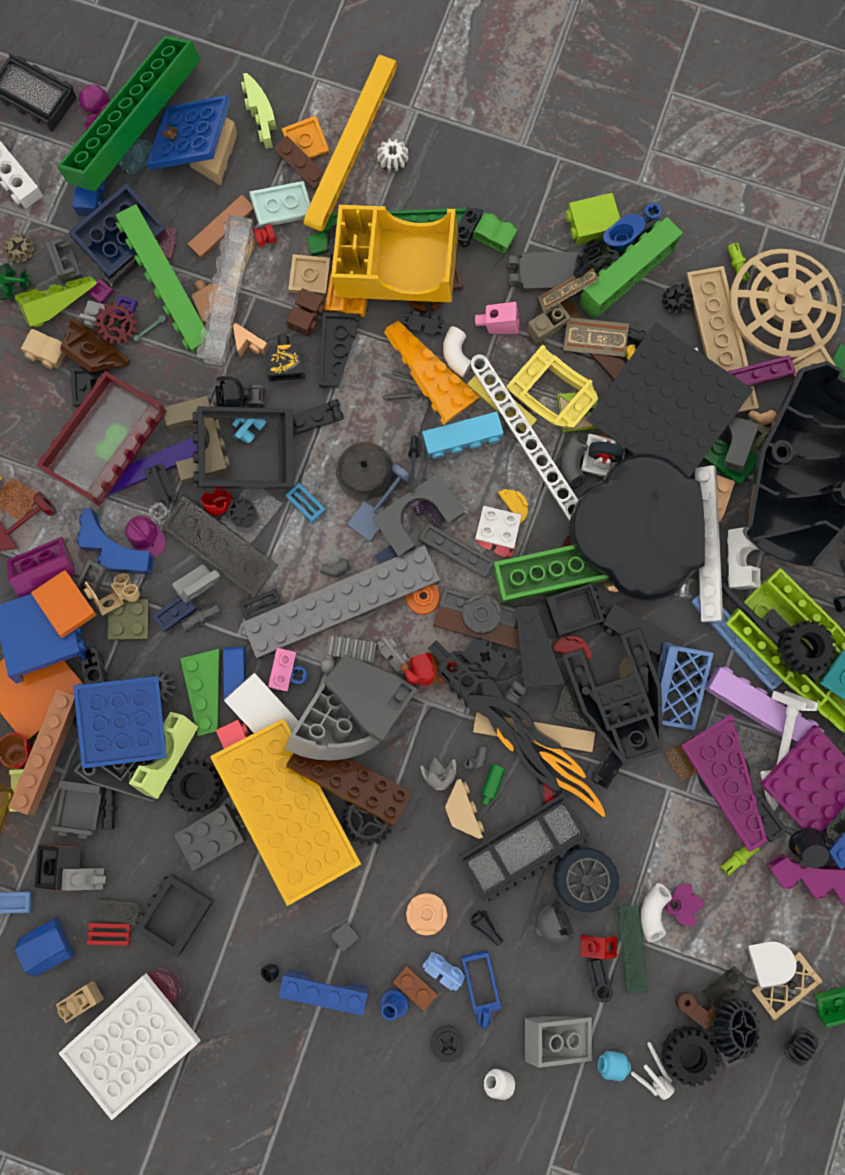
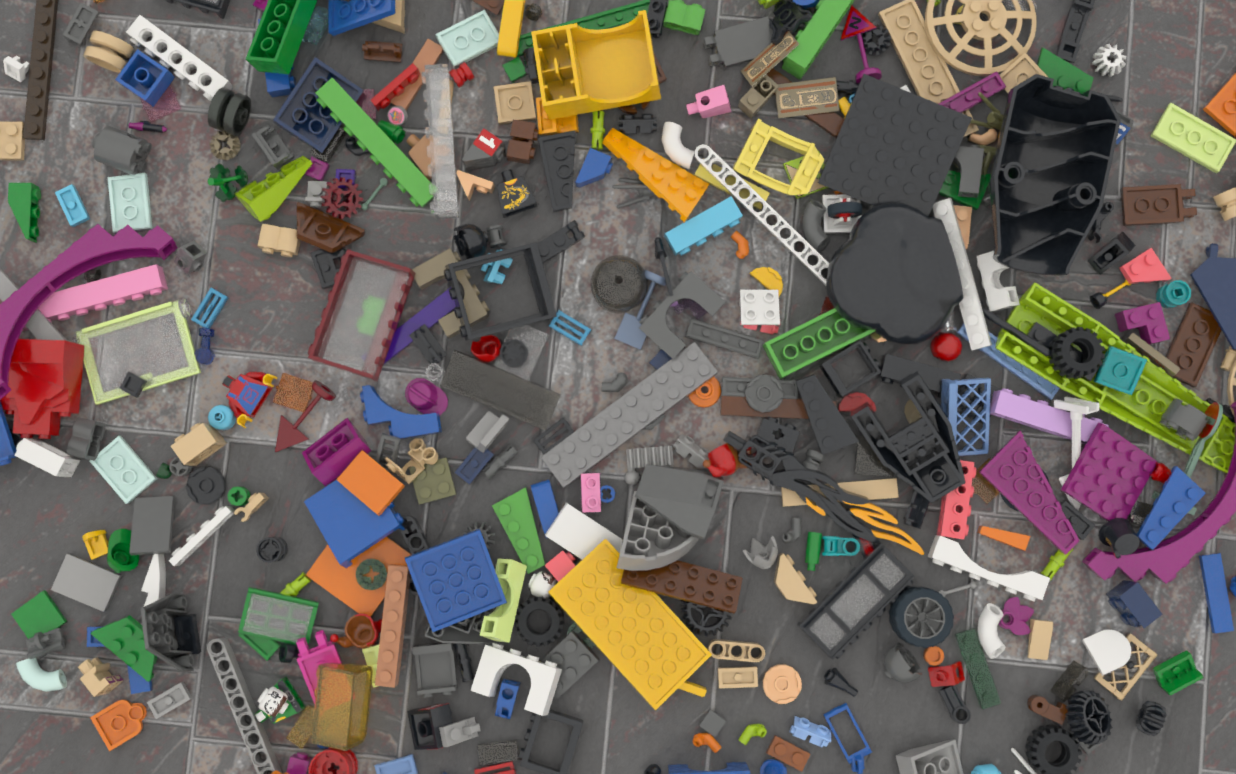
camera: 10 degrees left, 5 degrees up
(30, 215) = (229, 111): none -> pearl dark grey wheel
(35, 689) = (364, 568): none -> clear green gear
(141, 279) = (353, 147): none -> black arm
(141, 857) = (507, 698): none -> blue leg
(182, 842) = (543, 676): none -> white arch
(184, 274) = (393, 131): none -> green cone
(192, 259) = (397, 115): none -> tile
(194, 196) = (382, 51): none -> reddish brown hinge
(197, 231) = (395, 87): none -> red plate
(207, 747) = (541, 584): none -> white head
(265, 312) = (484, 152): none -> dark grey slope
(333, 894) = (693, 688): none -> yellow tile
(335, 952) = (706, 739): none -> orange arm
(350, 194) = (533, 12): none -> clear smoke plate
(369, 354) = (594, 168): none -> blue slope
(379, 859) = (745, 654): none -> tan beam
(382, 895) = (737, 677): none -> tan plate
(383, 319) = (597, 130): none -> lime pin
(384, 955) = (752, 731): none -> lime arm
(497, 464) = (743, 245): none -> orange arm
(518, 786) = (838, 546): none -> teal piece
(590, 923) = (933, 655): none -> orange tile
(631, 821) = (1026, 582): none -> white arch
(647, 861) = (972, 584): none -> light grey hinge
(649, 773) = (956, 506): none -> coral brick
(662, 280) = (855, 25): none -> magenta piece
(677, 612) = (946, 346): none -> red hair
(698, 823) = (1009, 538): none -> orange piece
(703, 934) = (1039, 639): none -> tan slope
(775, 400) = (994, 118): none -> olive plant
(808, 921) = (1133, 604): none -> dark blue brick

